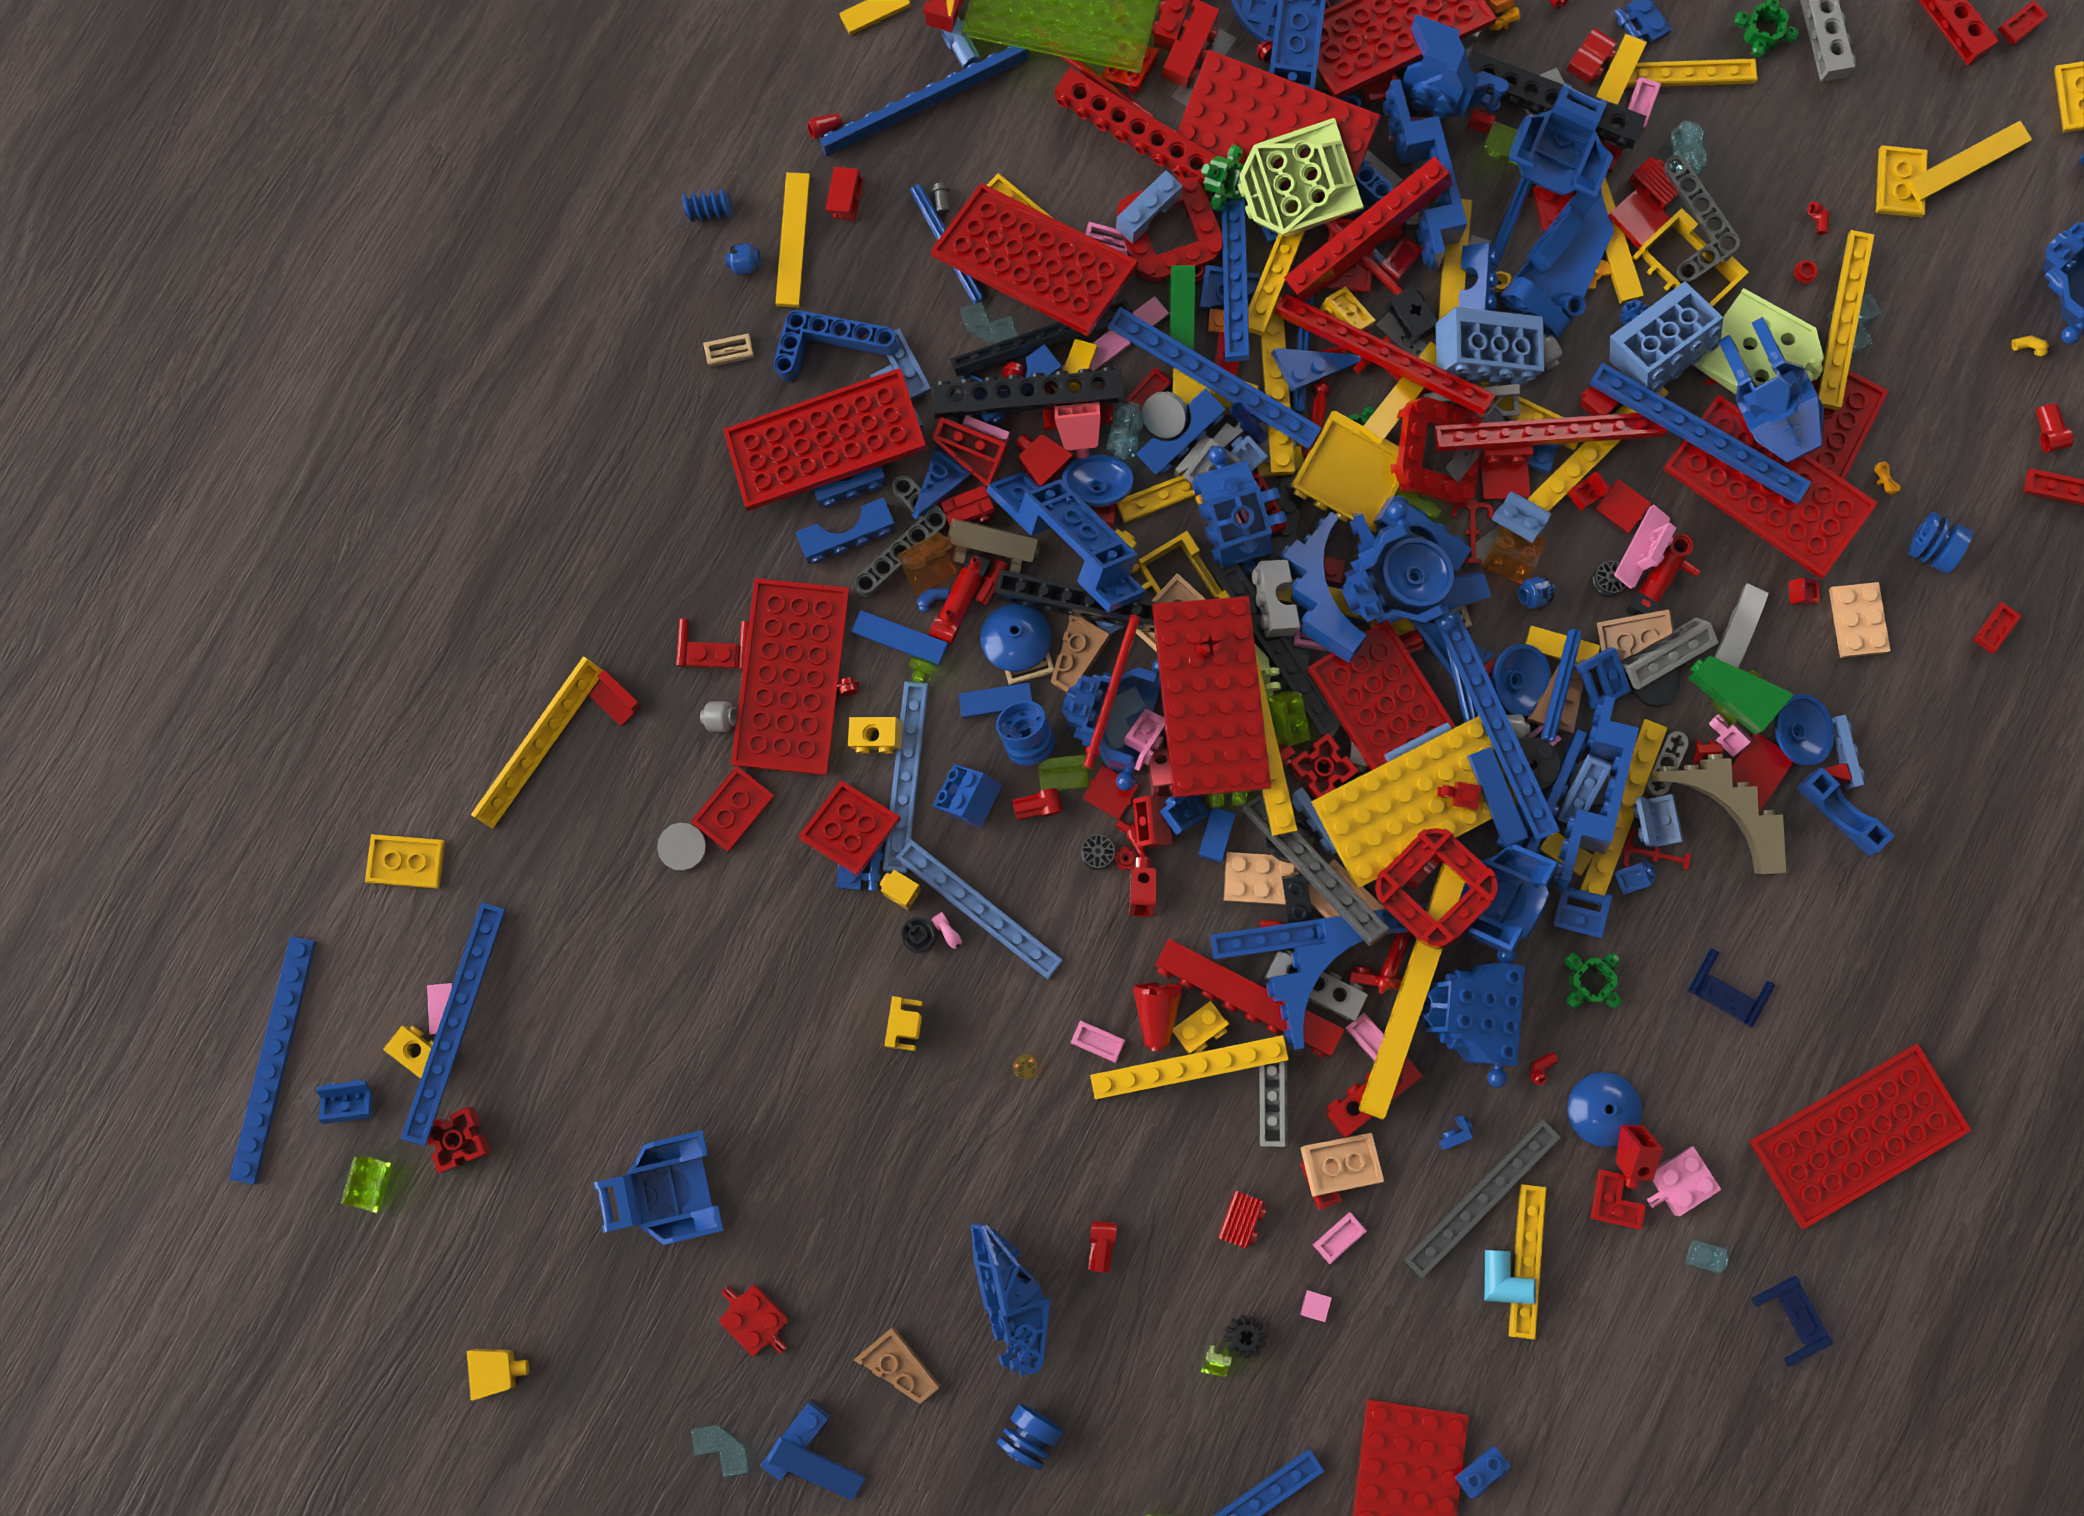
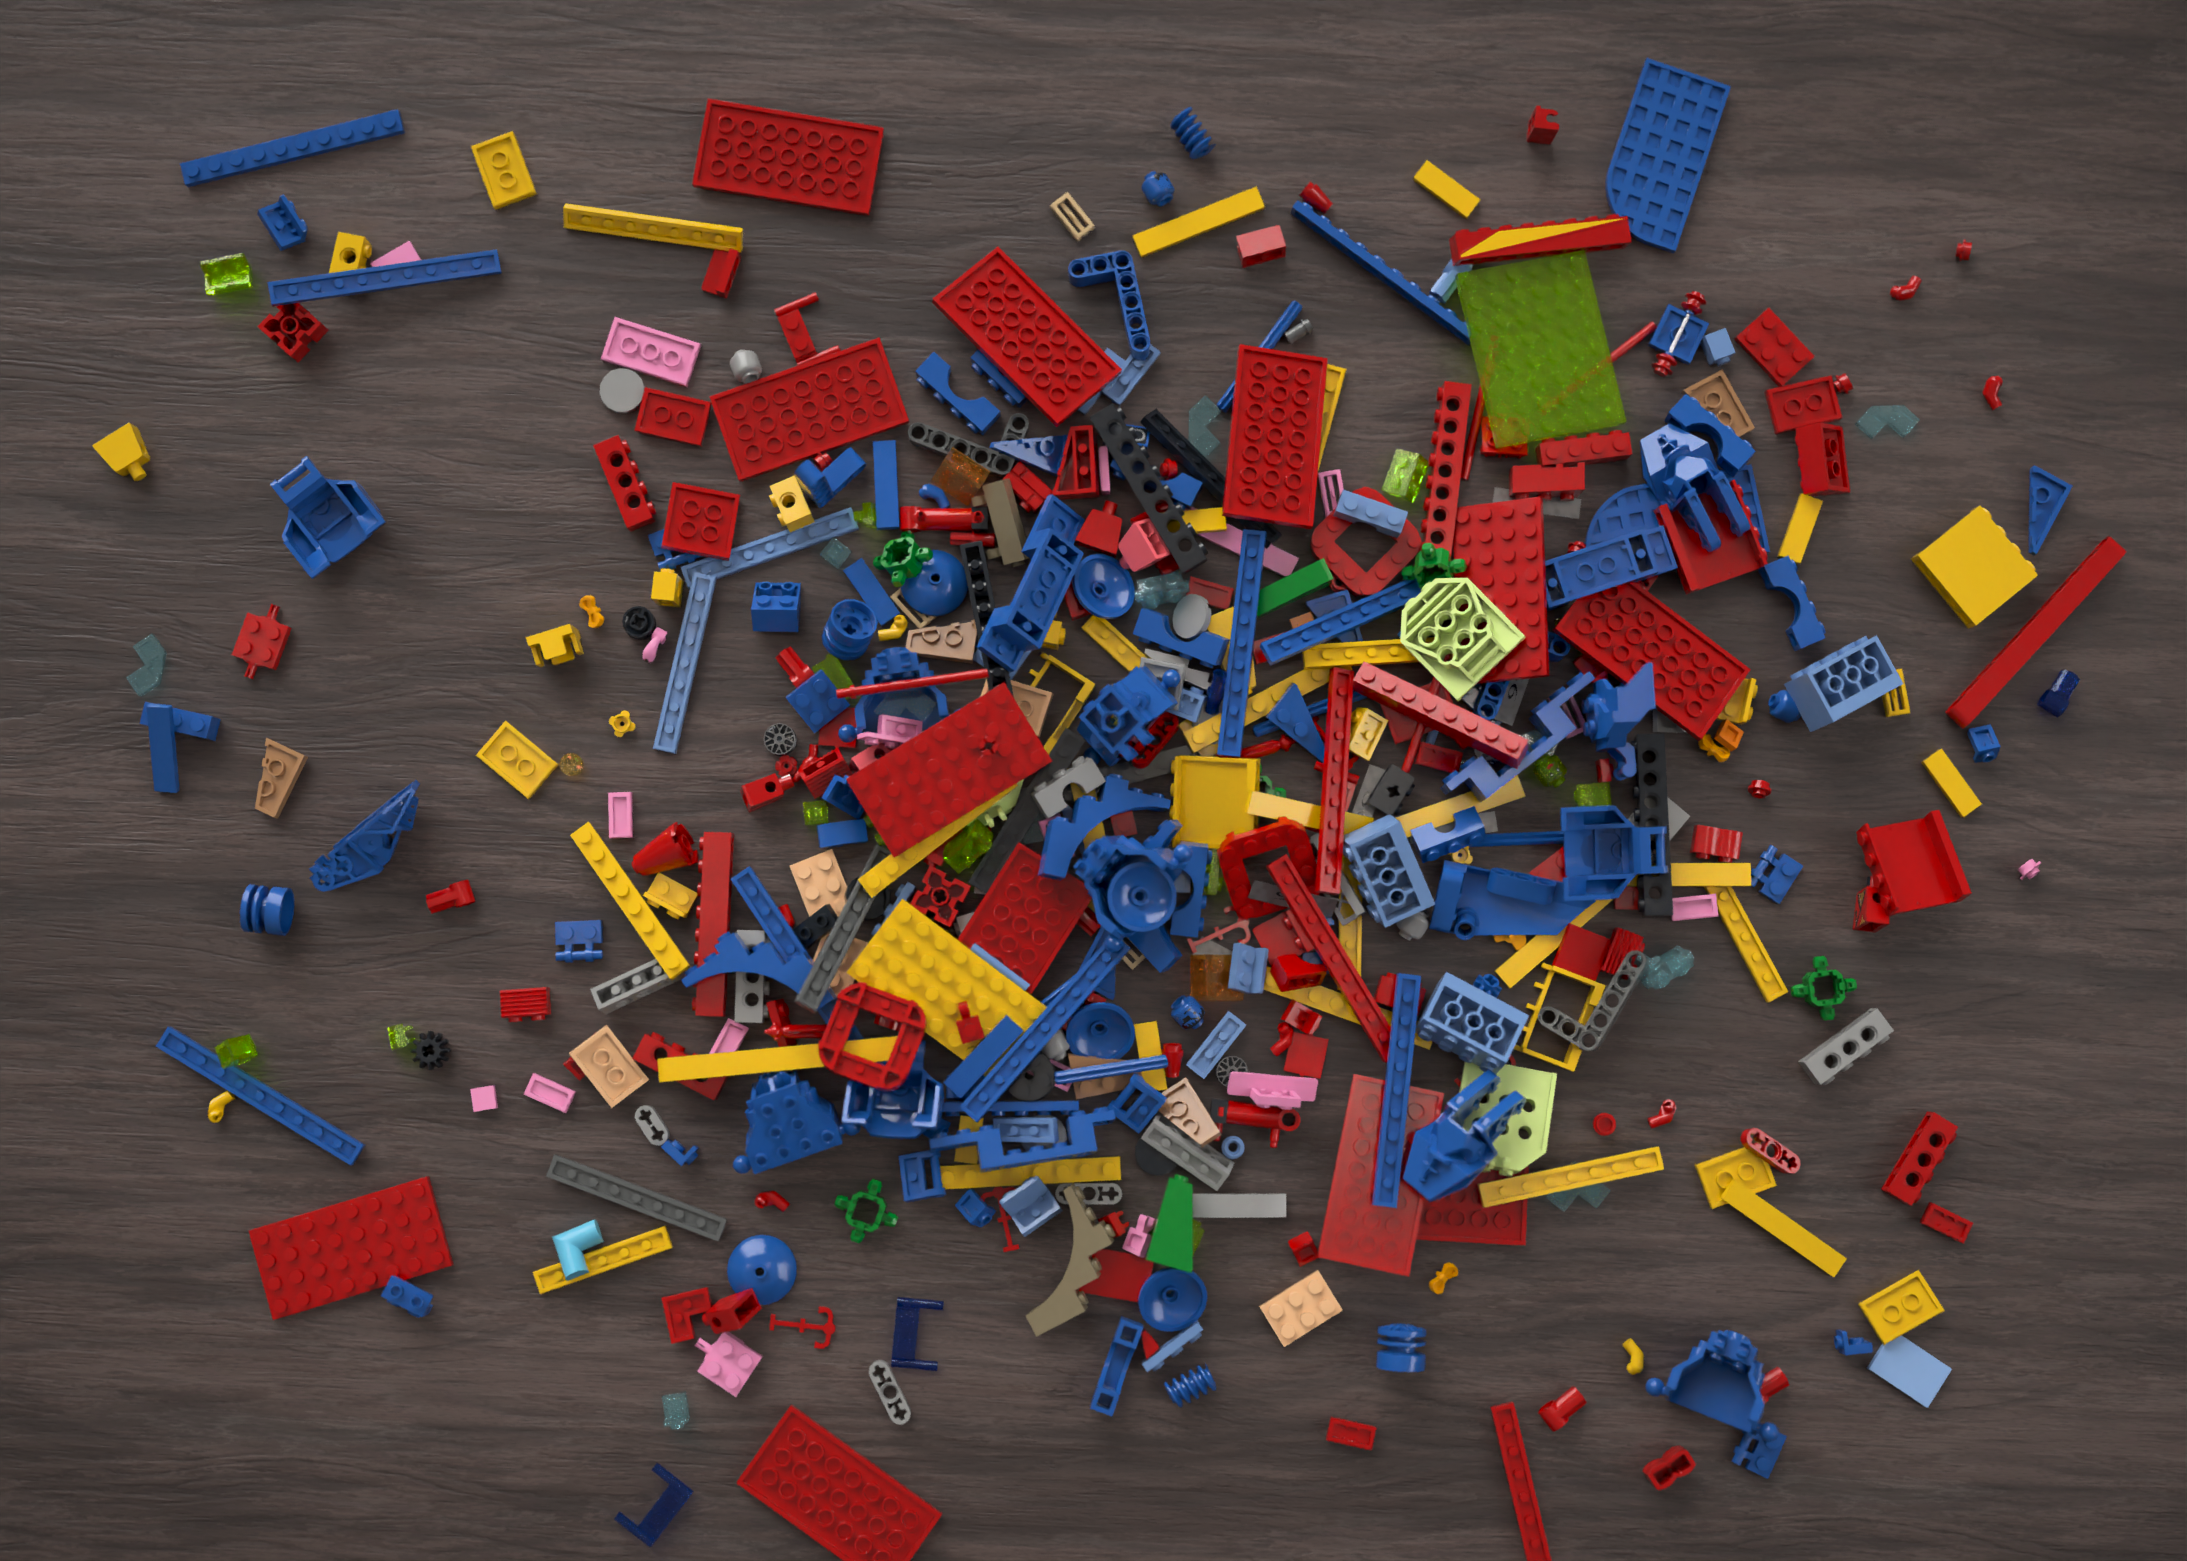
camera: 60 degrees right, 5 degrees up
(535, 583) = (788, 157): none -> red plate
(657, 802) = (651, 352): none -> bright pink tile
(812, 892) = (607, 452): none -> red brick
(868, 683) = (826, 484): none -> blue beam
(893, 976) = (595, 618): none -> light orange piece
(941, 717) = (835, 553): none -> clear light blue tile
(991, 662) = (910, 566): none -> green piece
(995, 1118) = (517, 760): none -> yellow tile
(1014, 993) = (628, 724): none -> yellow plate
(1043, 693) = (896, 629): none -> yellow arm
(1078, 797) = (817, 701): none -> blue plate
(1122, 166) = (1405, 475): none -> clear neon green bracket
(1183, 851) = (815, 812): none -> clear neon green tile
(1195, 1135) = (579, 933): none -> blue plate
(1417, 1157) = (656, 1121): none -> light grey beam
(1463, 165) = (1550, 770): none -> clear neon green head
(1545, 477) = (1294, 973): none -> red arch
(1570, 621) = (1174, 1056): none -> red cone
(1578, 581) = (1216, 1044): none -> medium blue plate
(1600, 516) = (1286, 1038): none -> red arm
(1686, 607) = (1240, 1147): none -> medium blue plate
(1689, 1071) = (828, 1328): none -> red piece
(1793, 1032) = (902, 1404): none -> light grey beam
(1891, 752) = (1190, 1386): none -> blue piece
(1899, 131) = (1780, 1151): none -> red beam

